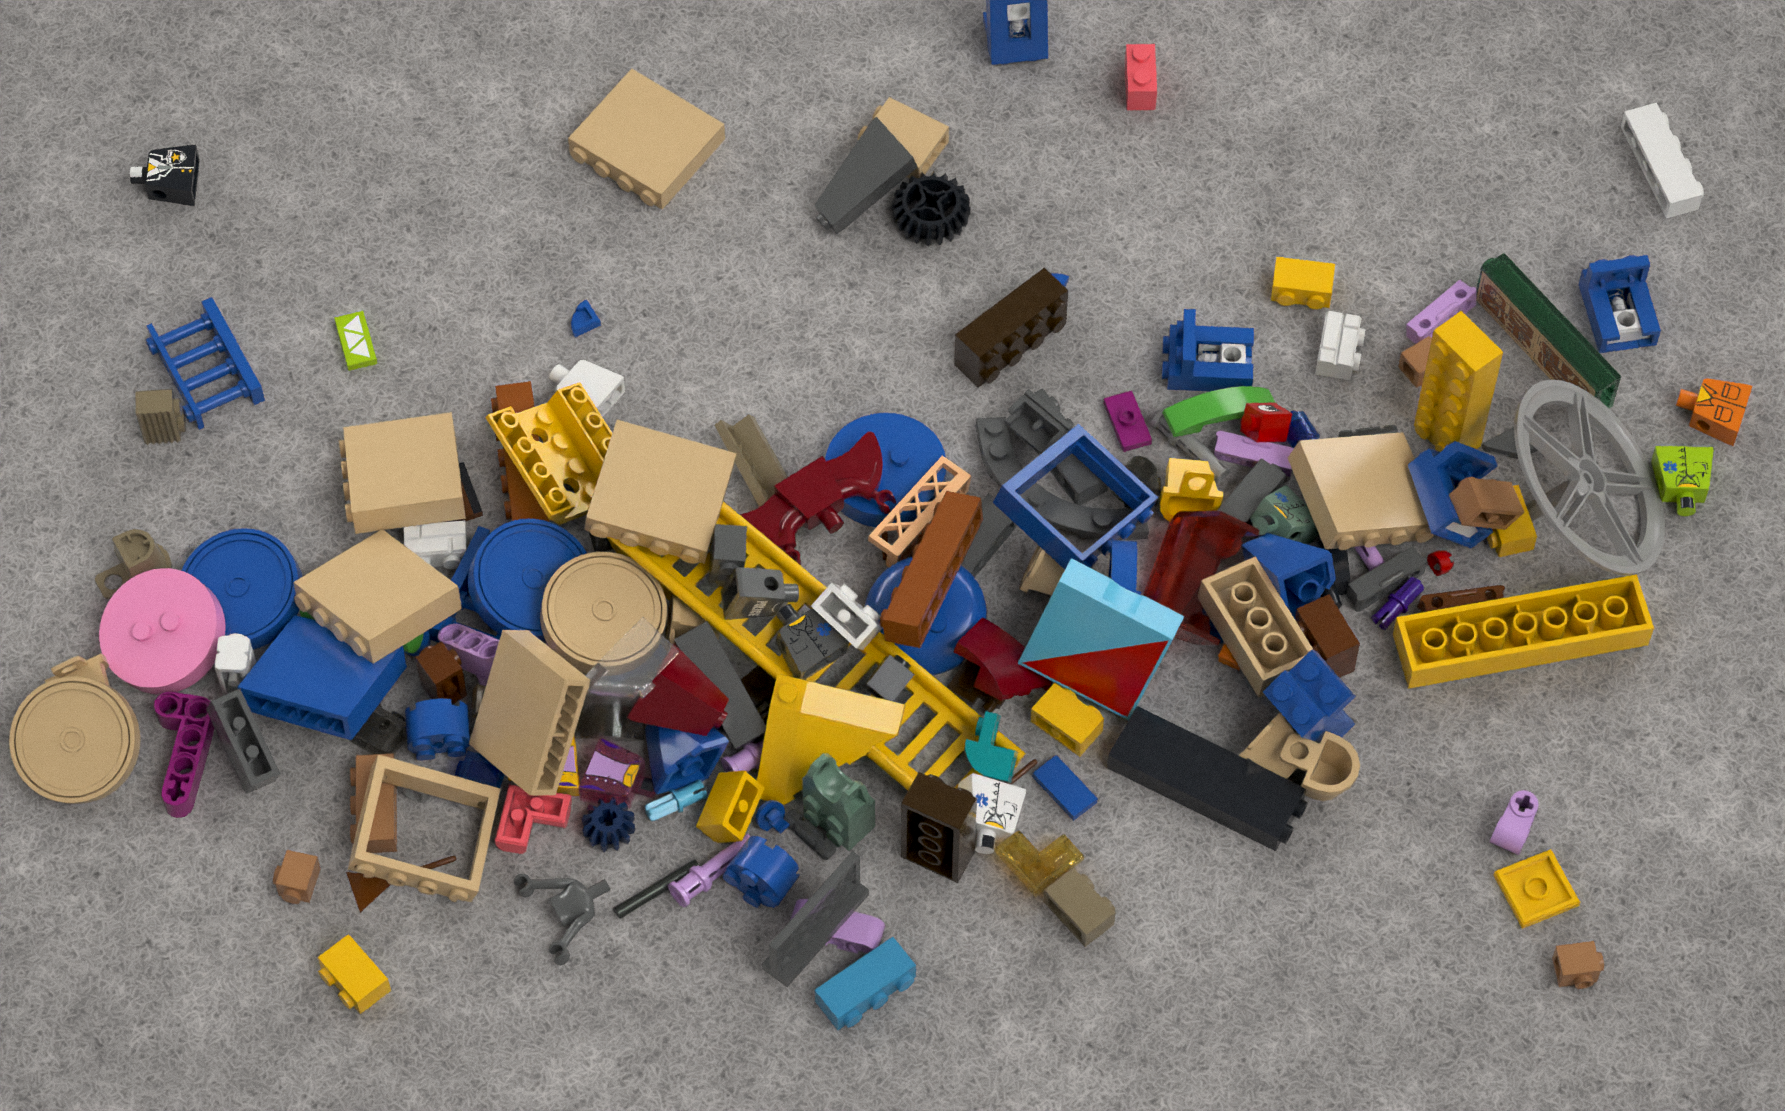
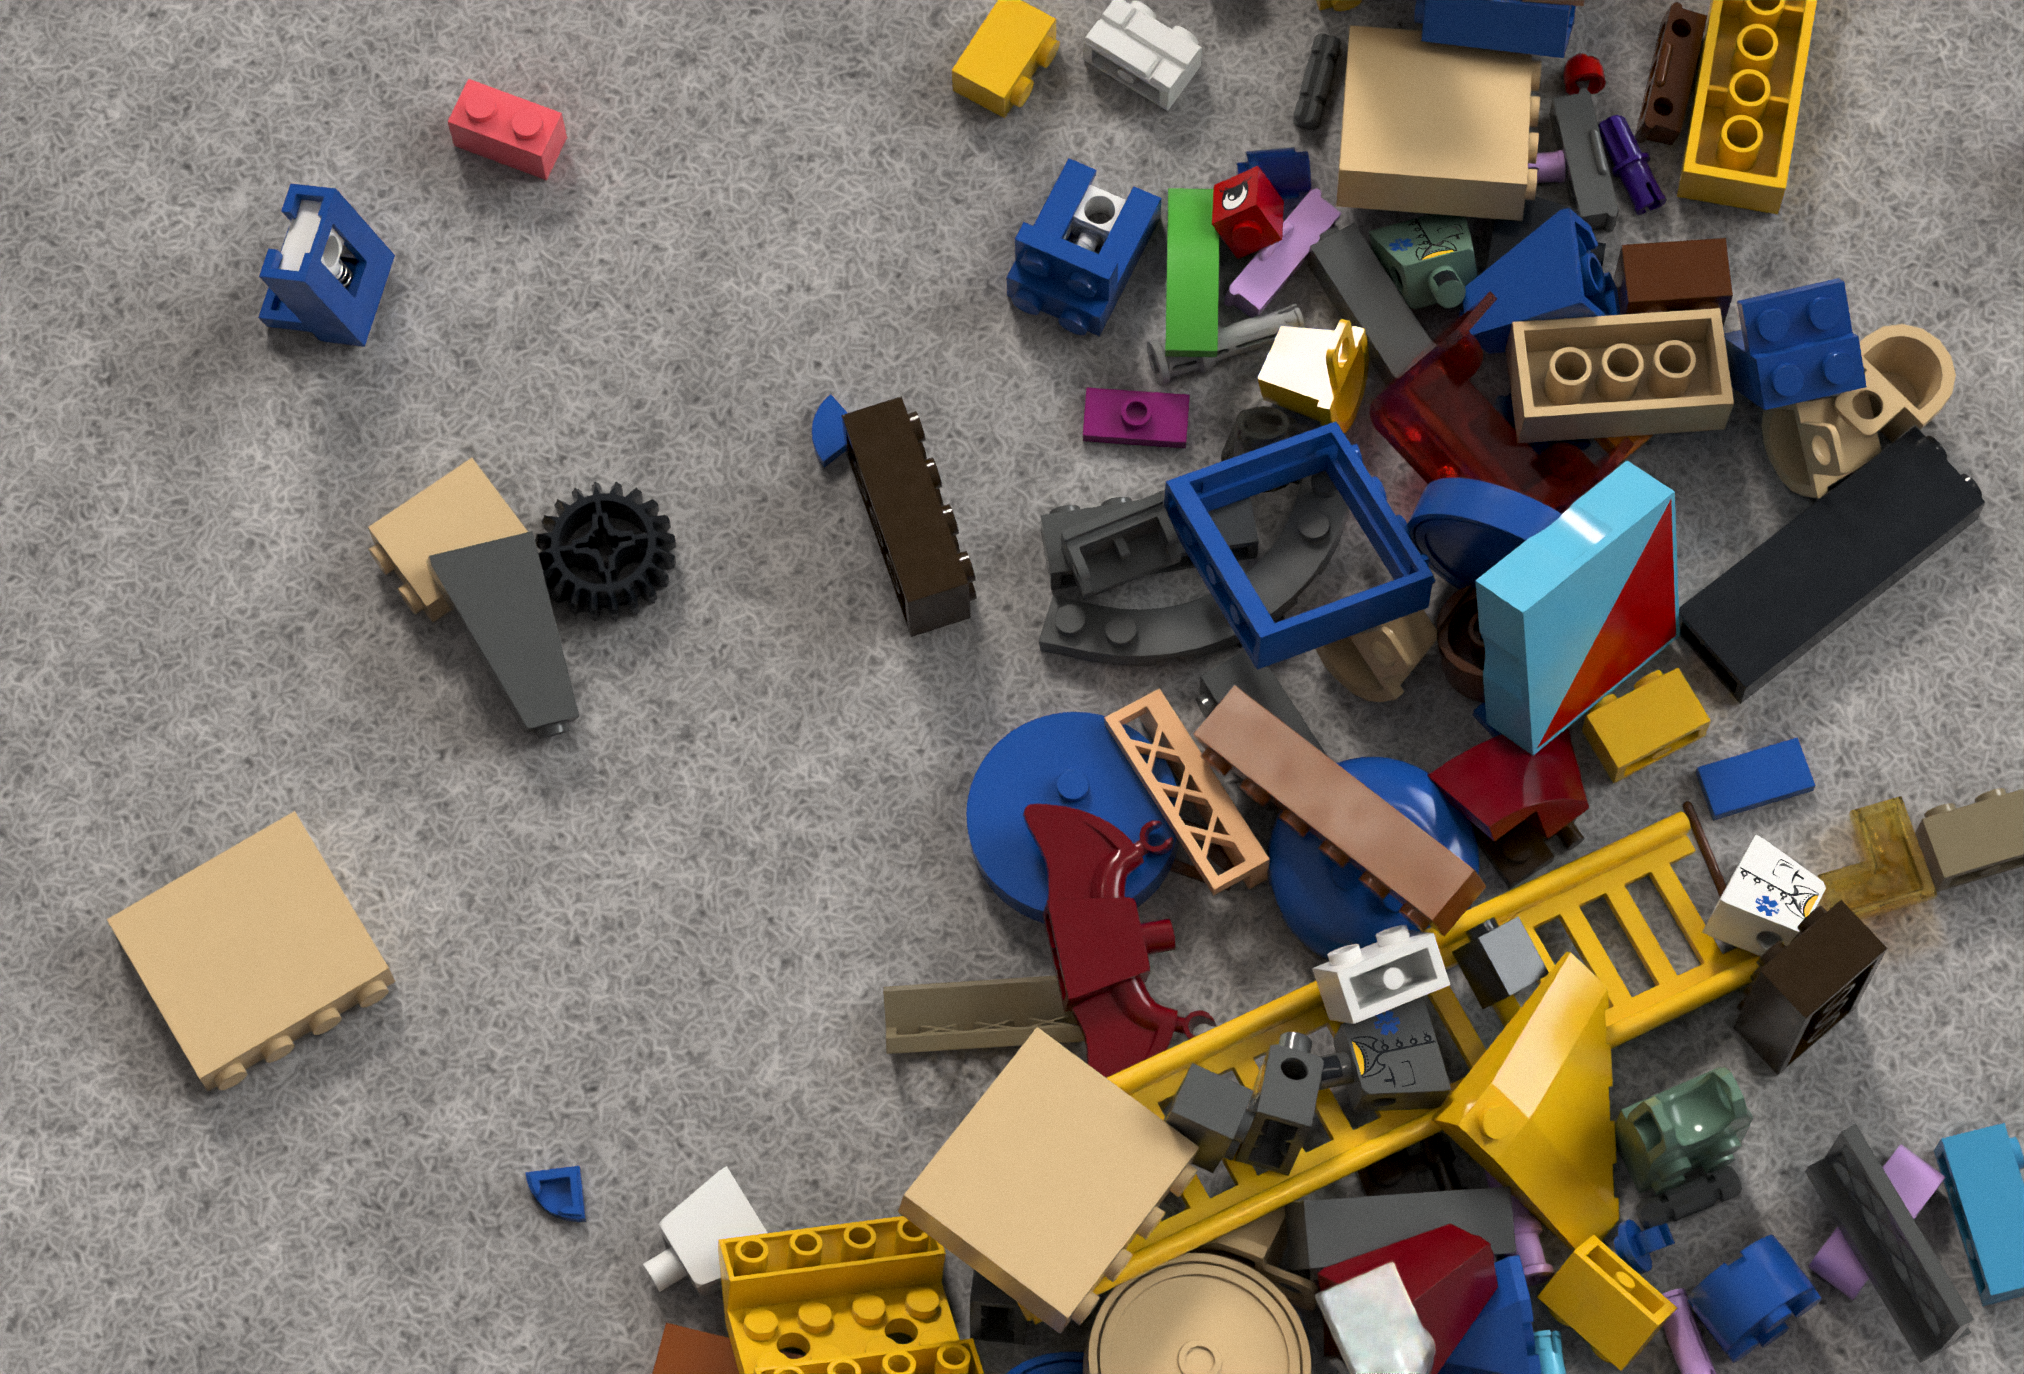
camera: 65 degrees left, 10 degrees up
(986, 758) = (1680, 866): teal brick -> none

